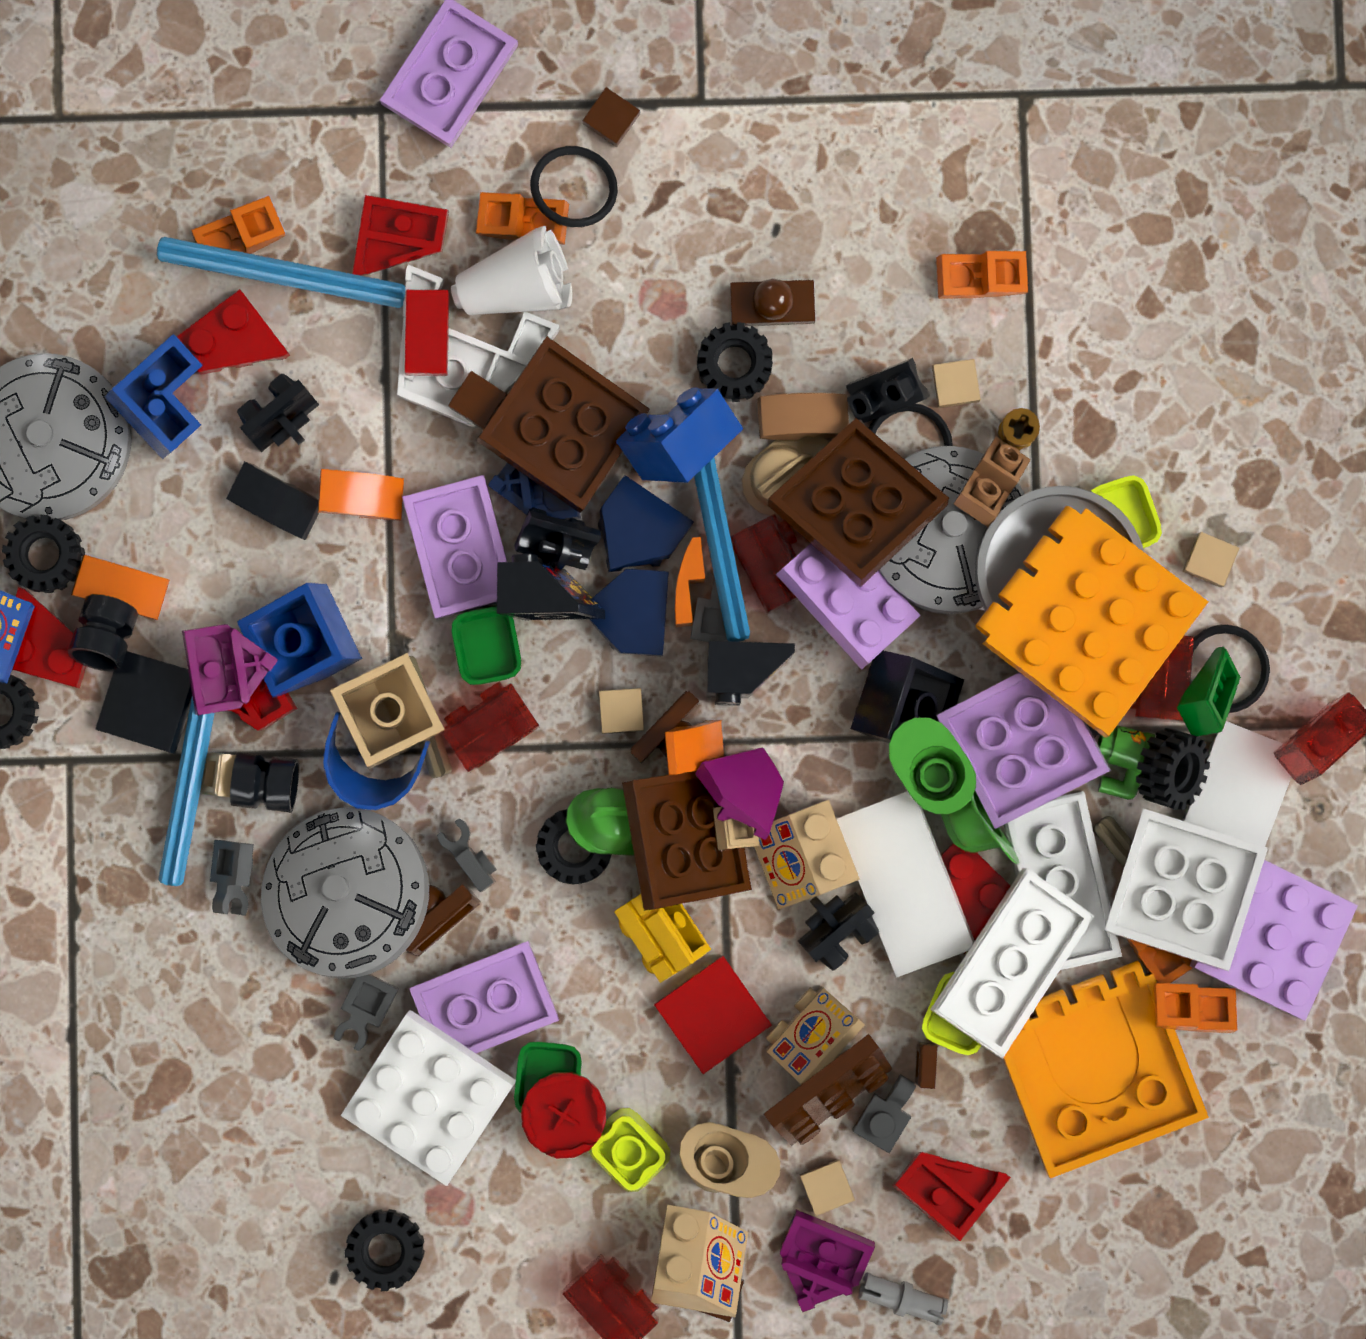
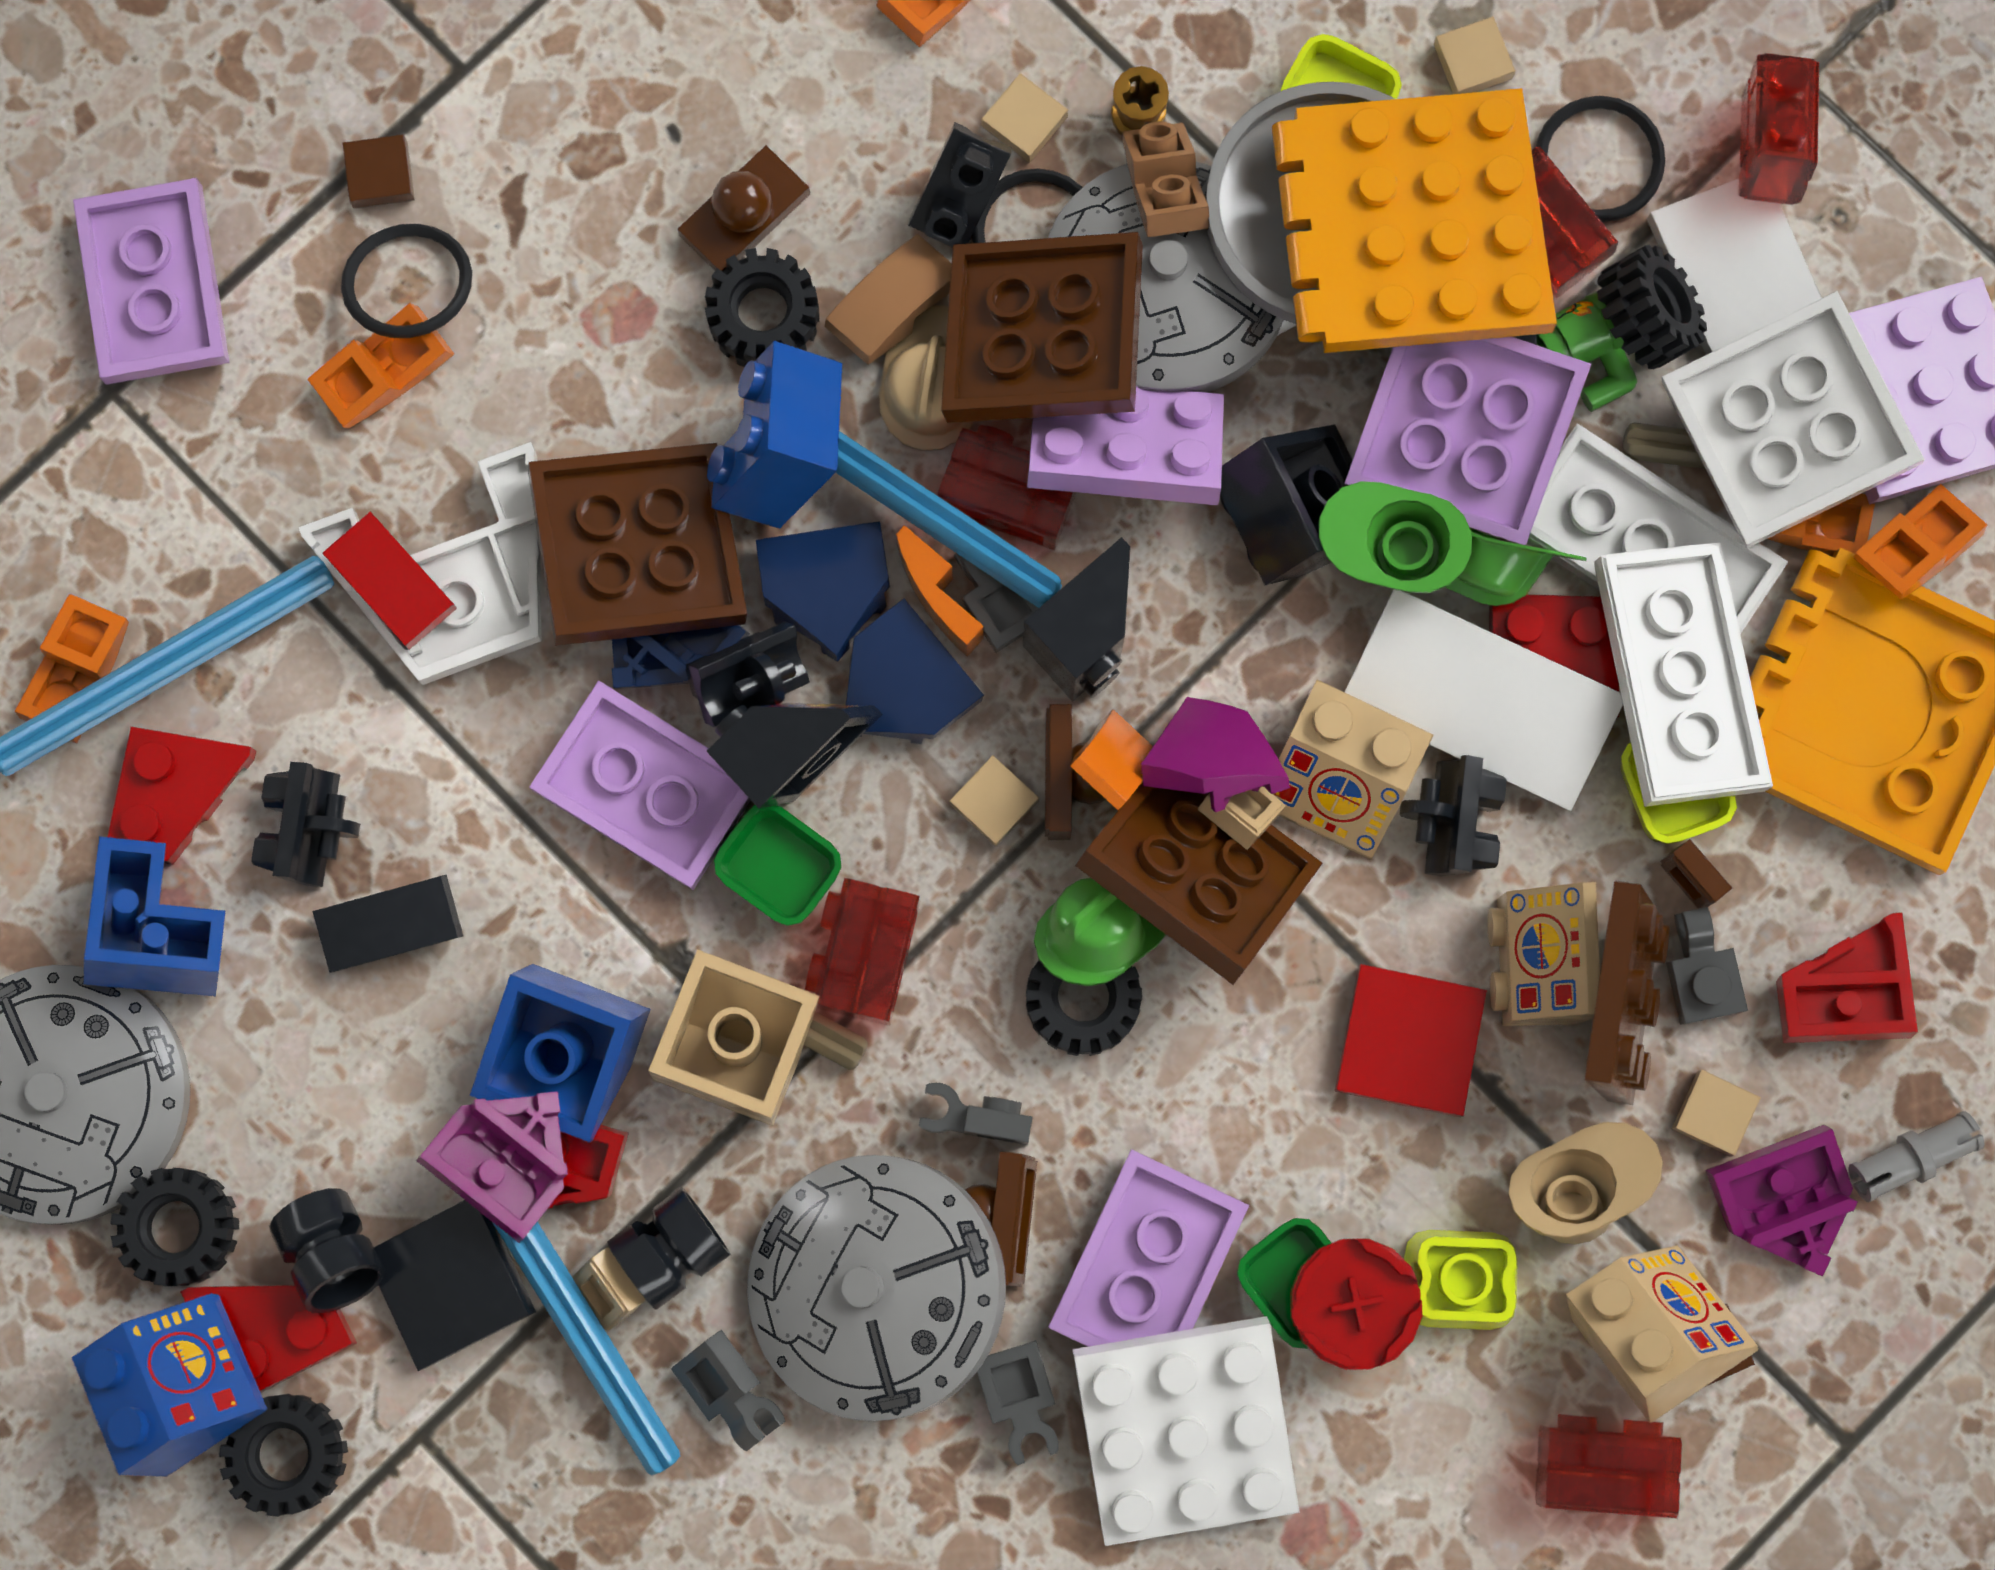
camera: 40 degrees left, 5 degrees down
(130, 585) = (318, 1164): orange slope -> none
(358, 789) = (795, 1151): blue piece -> none
(360, 494) = (479, 828): orange slope -> none
(397, 234) = (255, 506): red wing -> none
(477, 400) = (515, 603): reddish brown tile -> none
(516, 278) = (434, 434): white cone -> none
(663, 937) = (1274, 1002): yellow brick -> none
(1210, 695) = (1616, 194): green slope -> none

